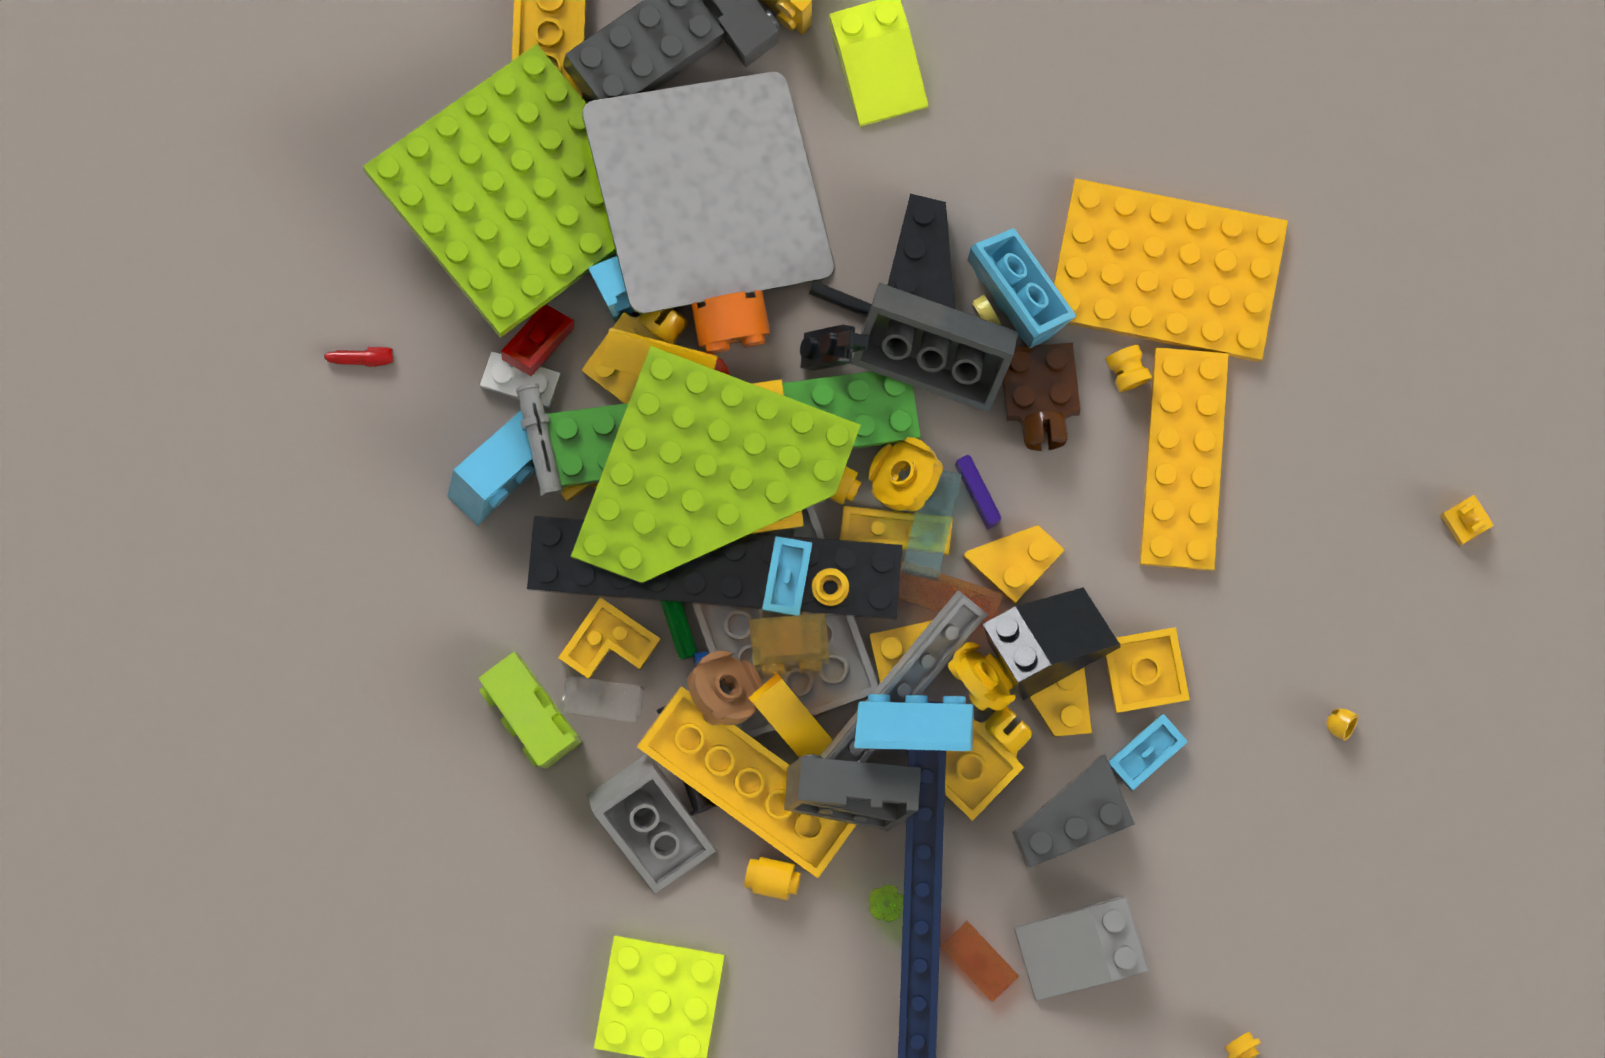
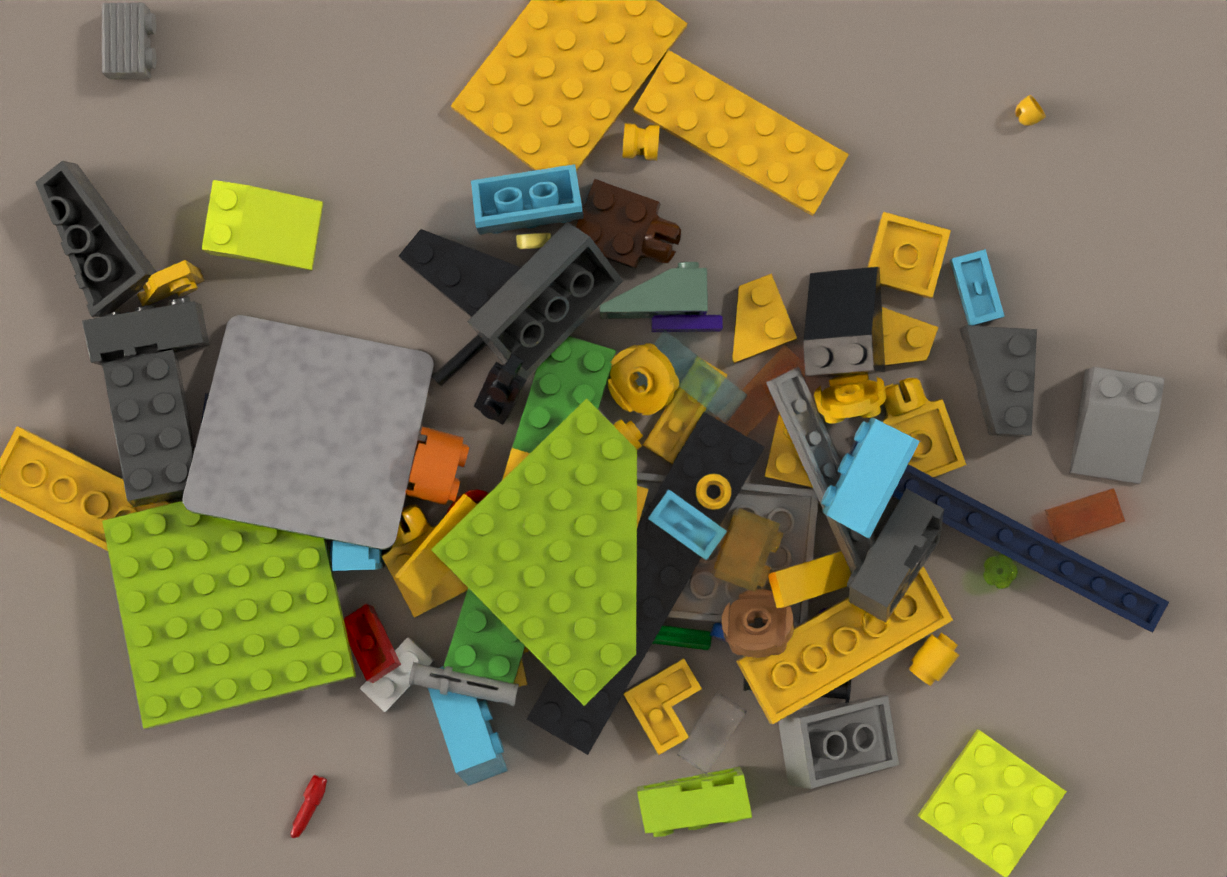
camera: 65 degrees left, 5 degrees up
(996, 456) = (669, 293): none -> sand green slope

